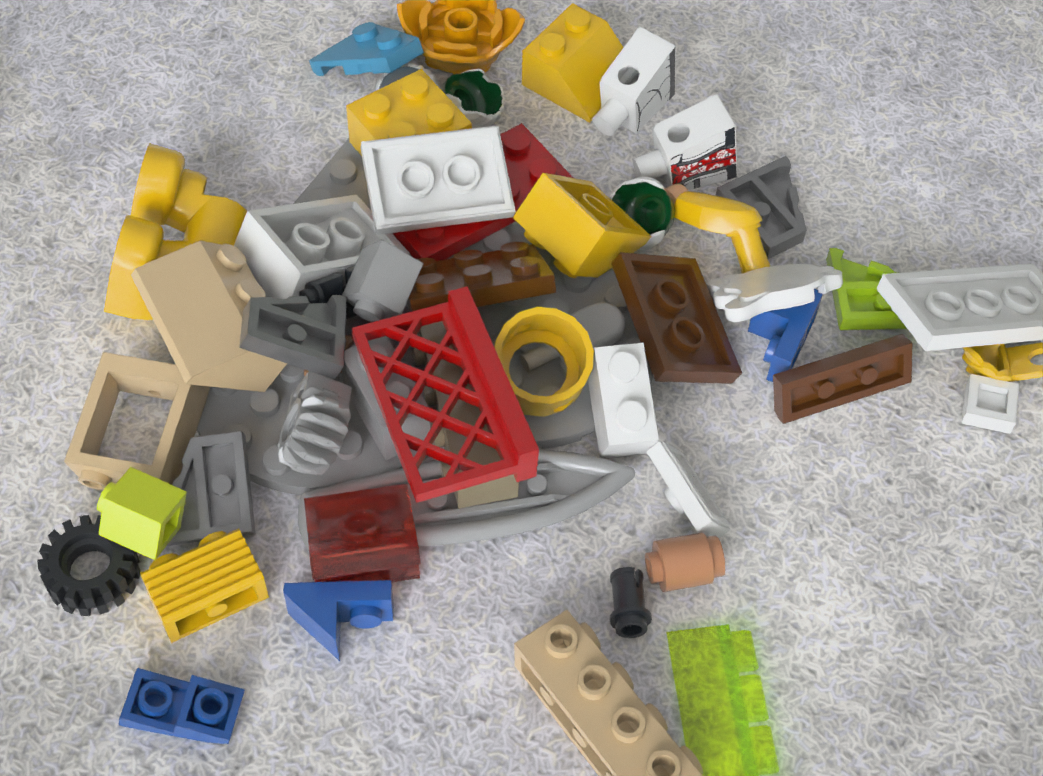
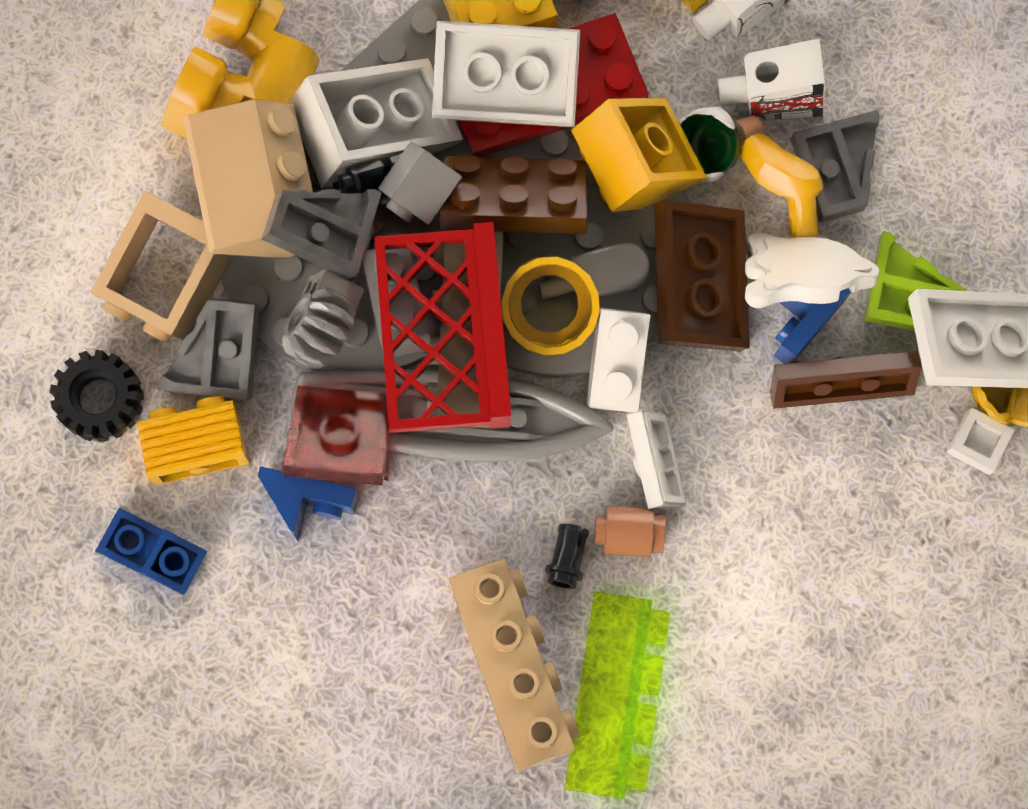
camera: 15 degrees right, 20 degrees up
(141, 512) = (147, 365): neon yellow brick -> none

